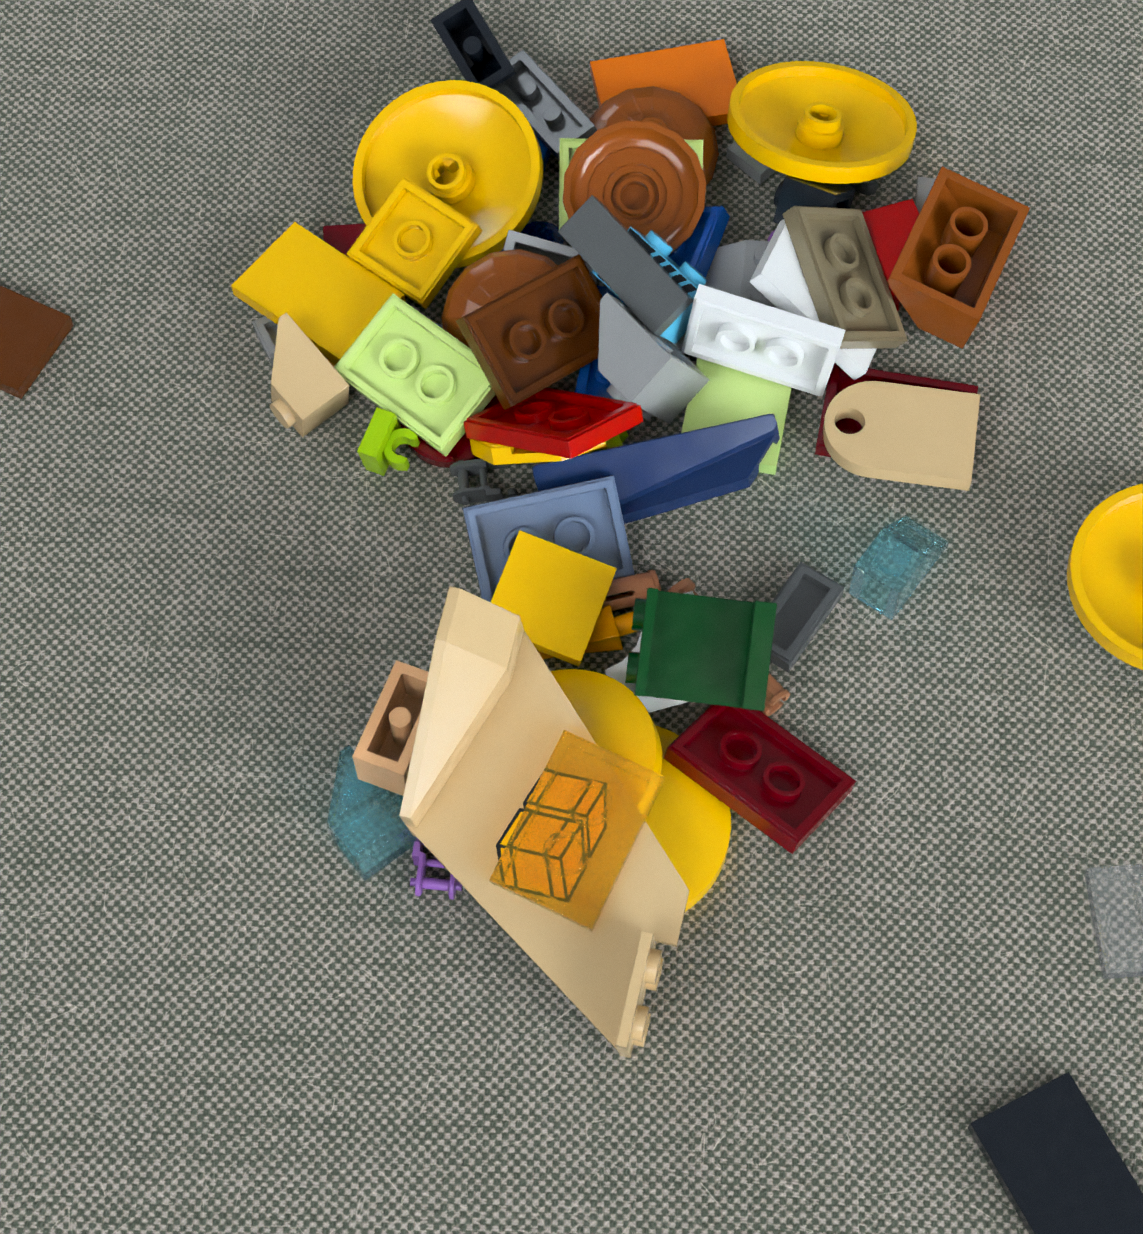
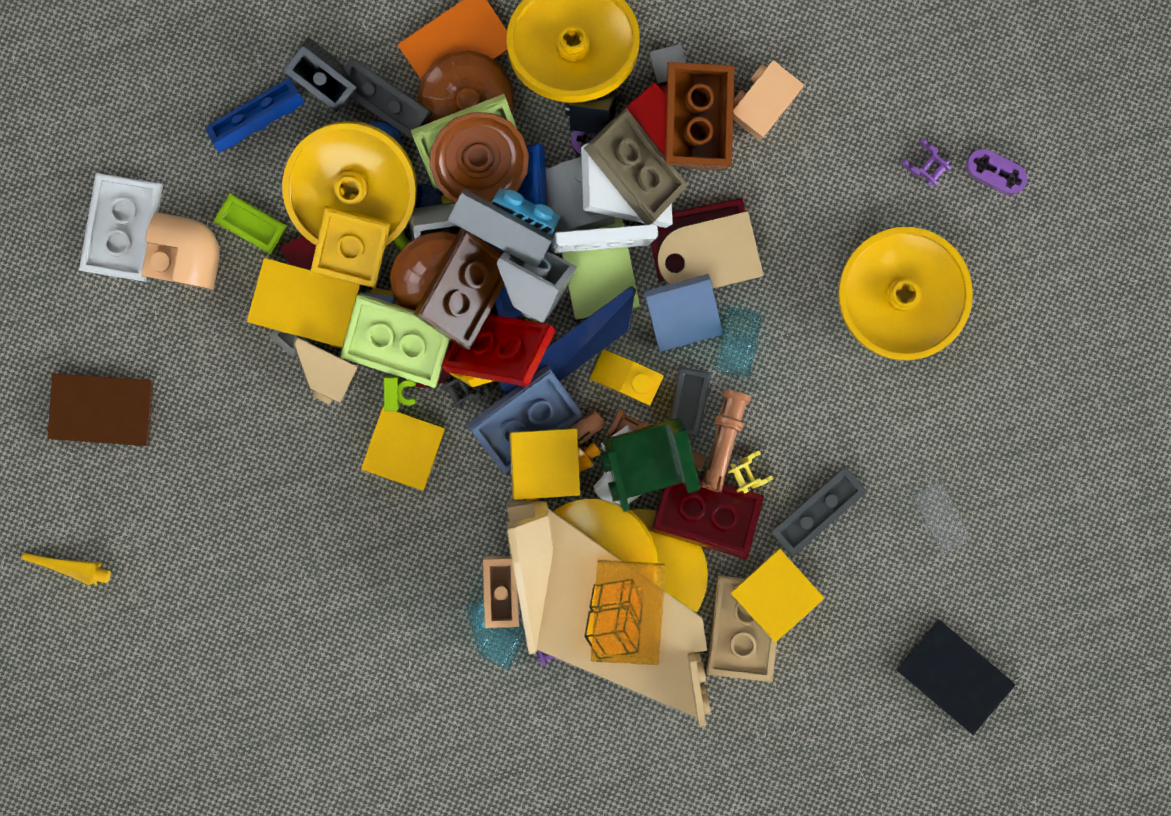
camera: 30 degrees left, 25 degrees up
(134, 141) = (118, 226): none -> white tile
(194, 182) = (181, 251): none -> light nougat brick
(299, 192) = (250, 224): none -> lime tile
(359, 525) = (403, 449): none -> yellow tile
(370, 75) = (254, 115): none -> blue plate
(722, 549) = (626, 377): none -> yellow slope
(748, 965) = (736, 640): none -> tan tile
(820, 925) = (777, 595): none -> yellow tile
(835, 487) = (683, 312): none -> sand blue tile
(840, 660) = (727, 425): none -> nougat pin
(849, 756) = (744, 462): none -> light yellow piece
(931, 834) = (818, 511): none -> dark grey plate
(1057, 280) = (766, 99): none -> light nougat brick

